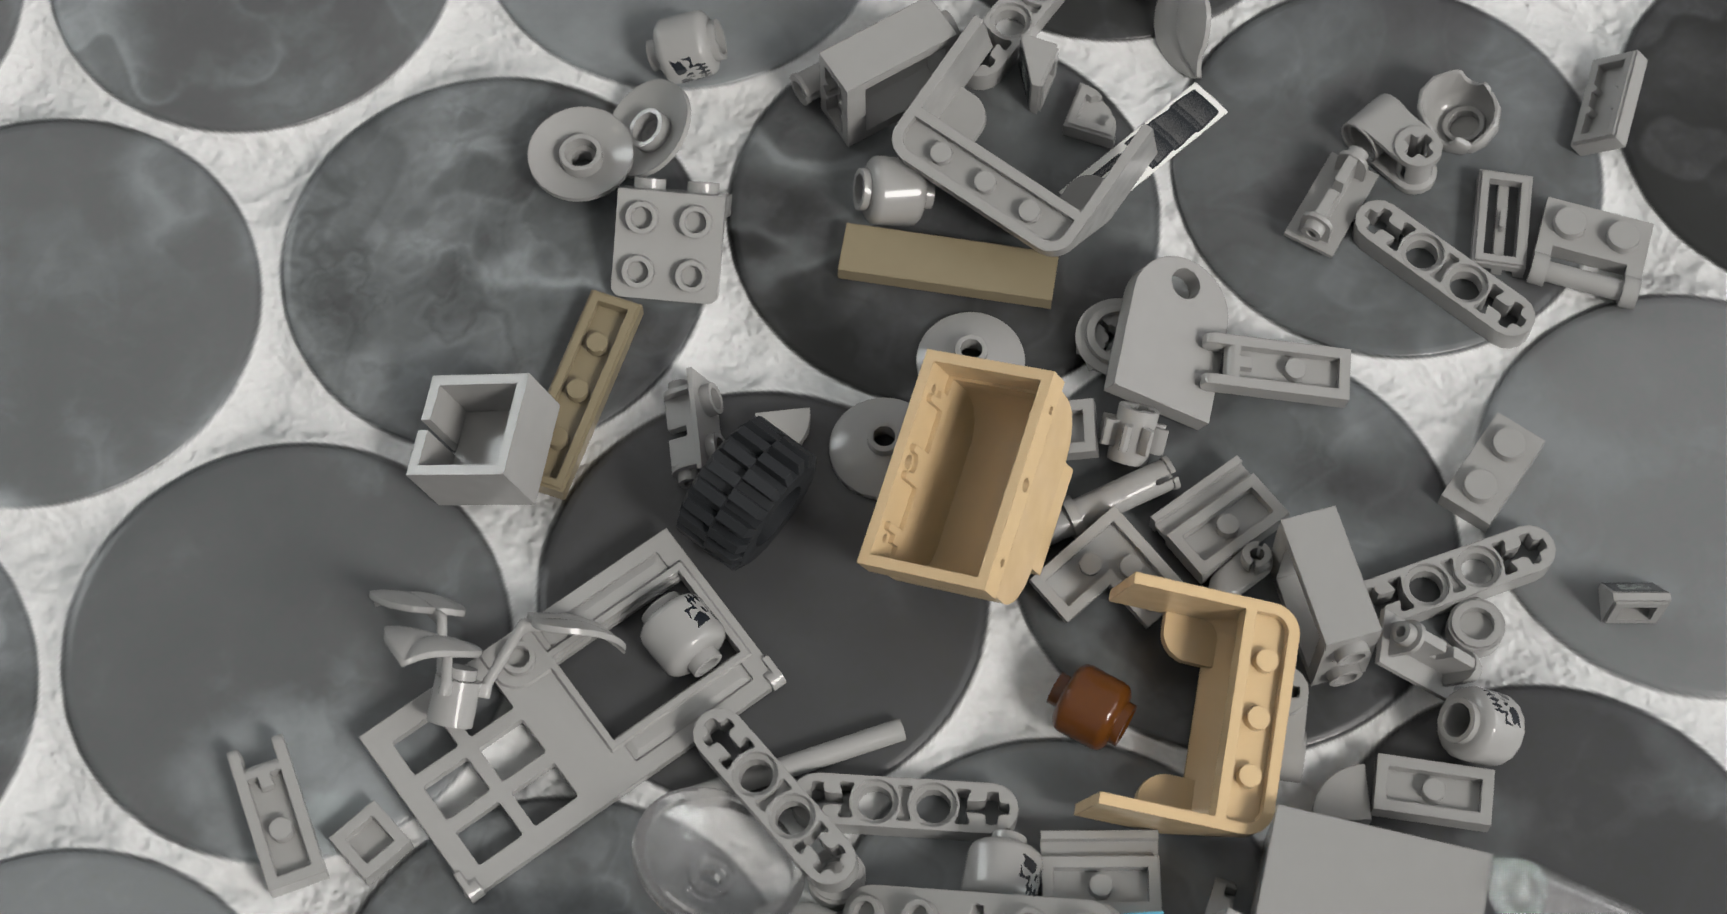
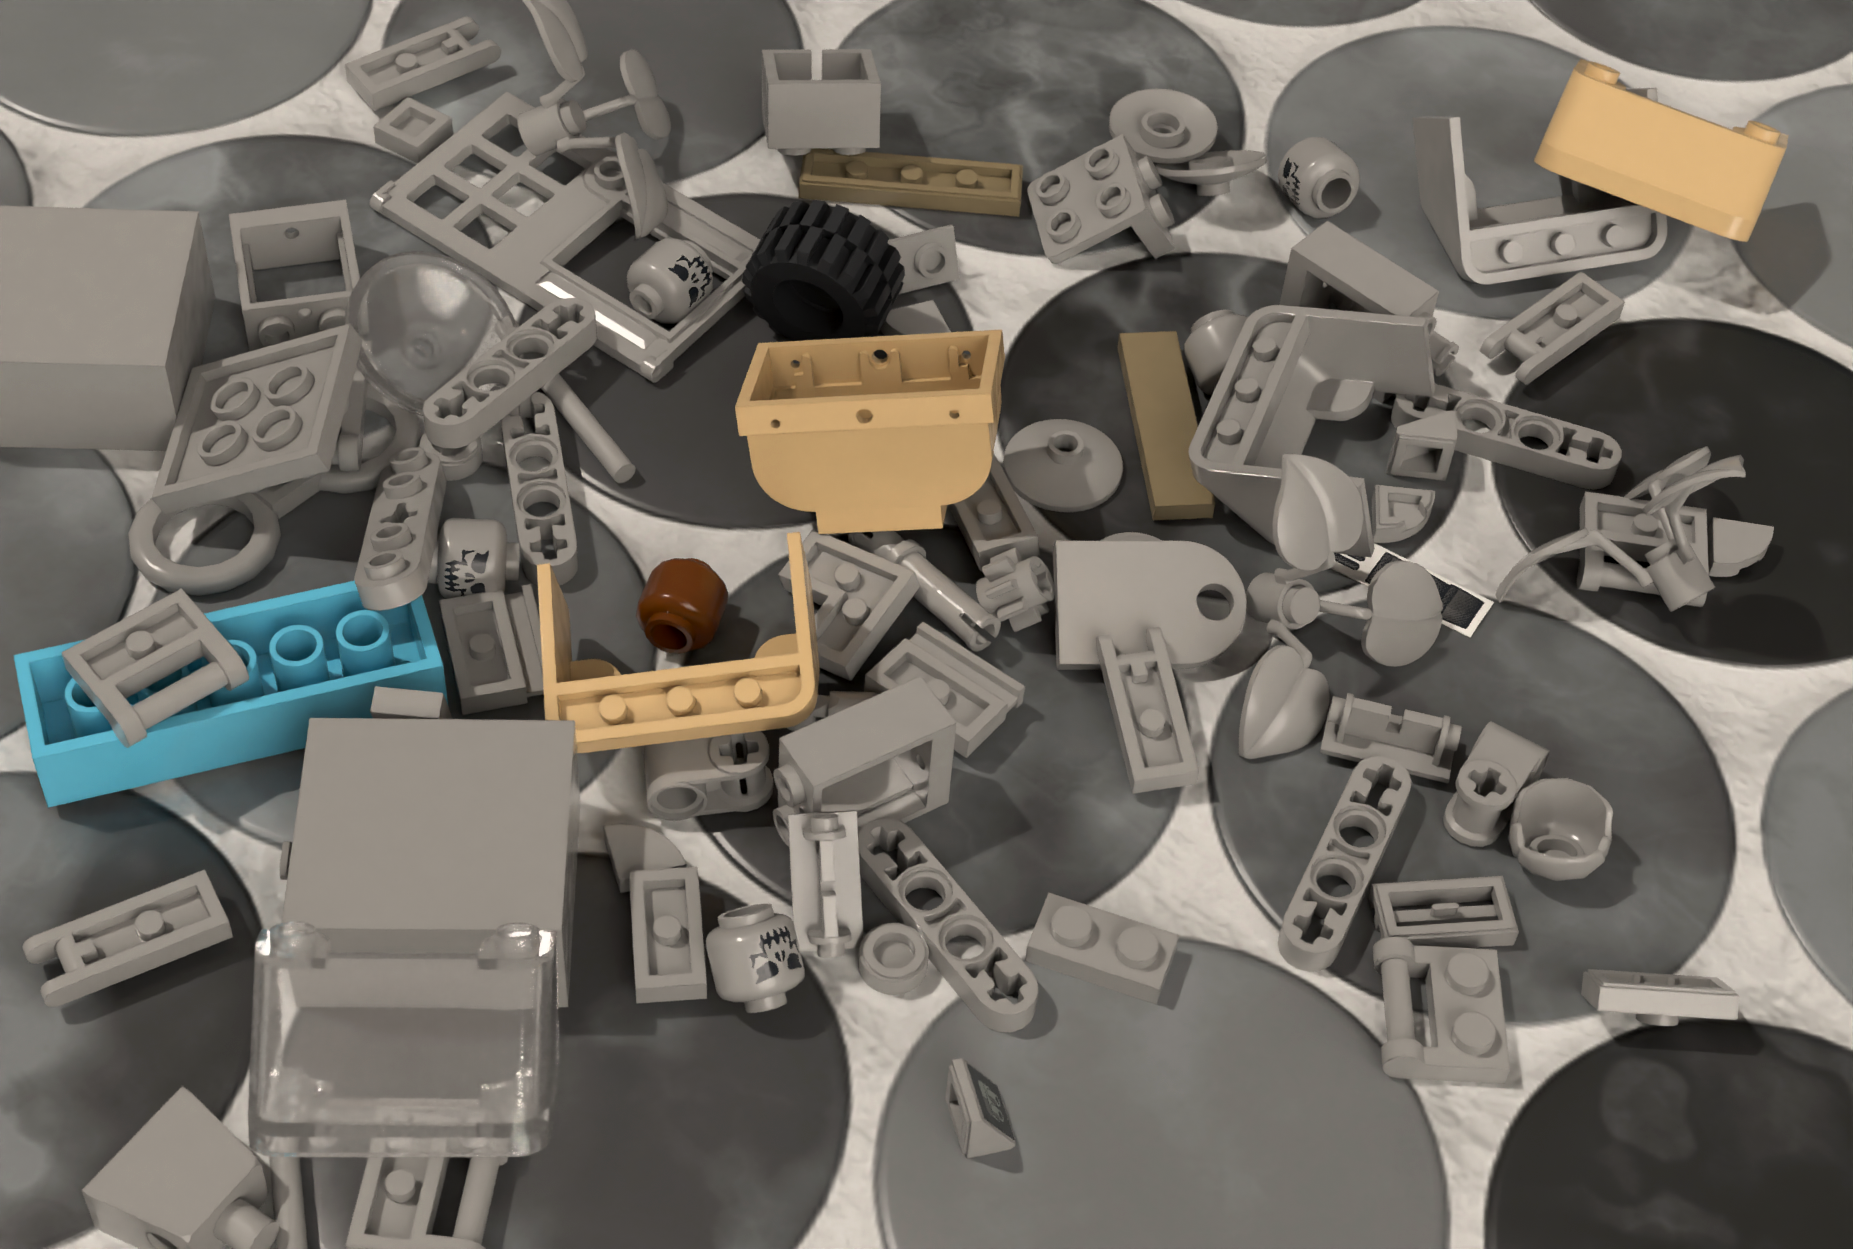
camera: 70 degrees right, 15 degrees down
(1222, 169) = (1312, 519): none -> light grey plant

